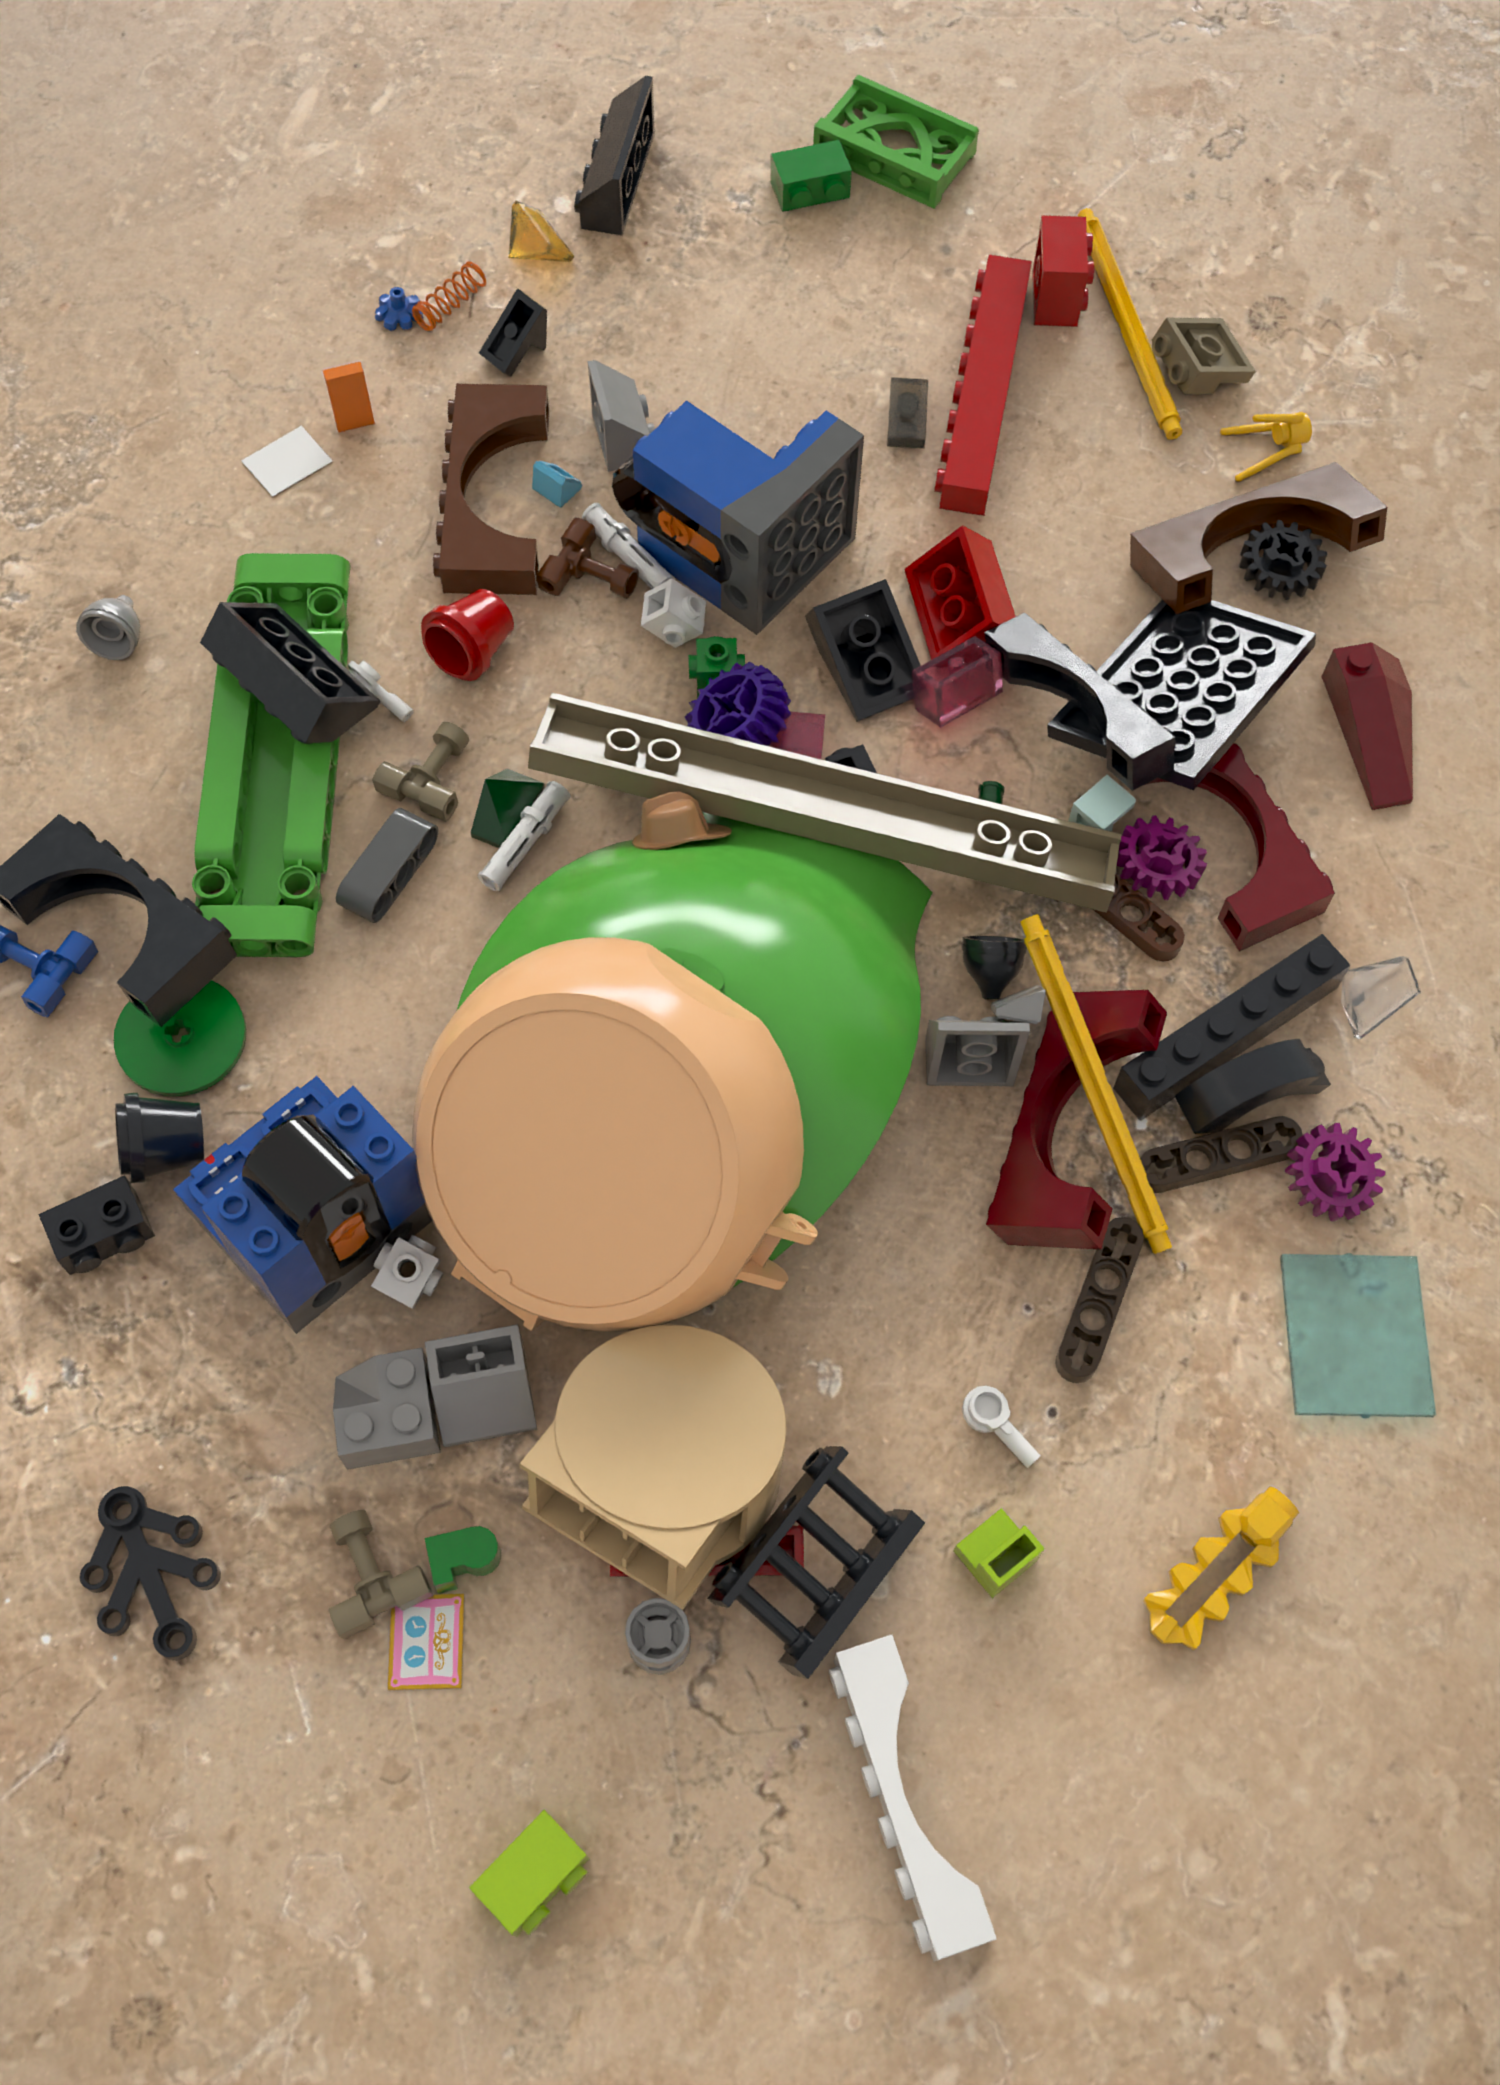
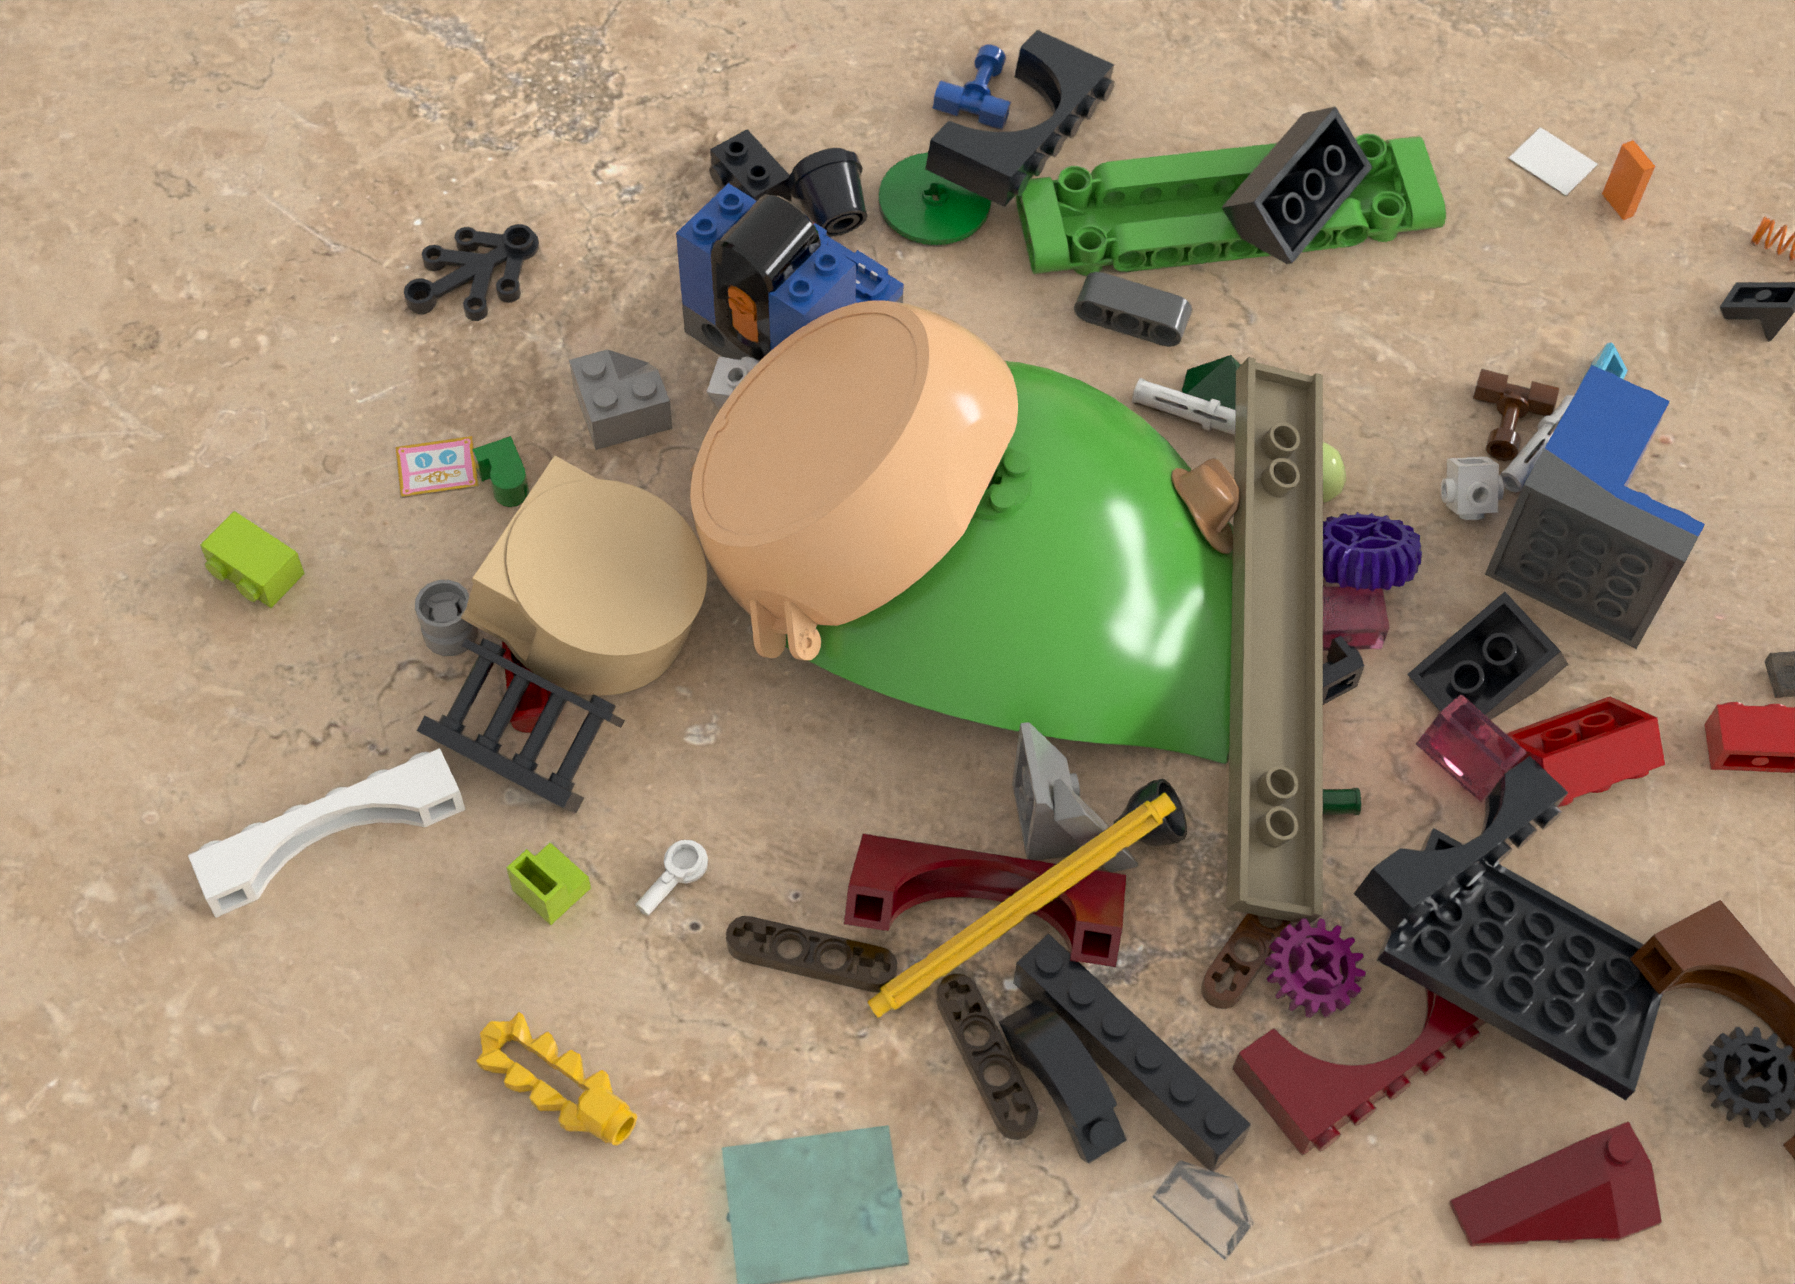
camera: 80 degrees right, 5 degrees down
(110, 627) = (1320, 64): light grey helmet -> none
(368, 677) = (1321, 259): white plate -> none
(377, 1589) = (471, 420): dark tan bar -> none
(396, 309) = (1758, 207): blue plant -> none
(421, 781) = (1224, 319): dark tan bar -> none
(467, 633) = (1393, 321): red piece -> none
(480, 1385) = (650, 451): light grey slope -> none
(483, 424) = (1644, 296): reddish brown arch -> none
(617, 413) = (1702, 401): light grey slope -> none
(711, 657) = (1432, 525): green brick -> none
(1102, 805) = (1344, 903): light aqua panel -> none
(1331, 1176) = (961, 1169): magenta gear -> none

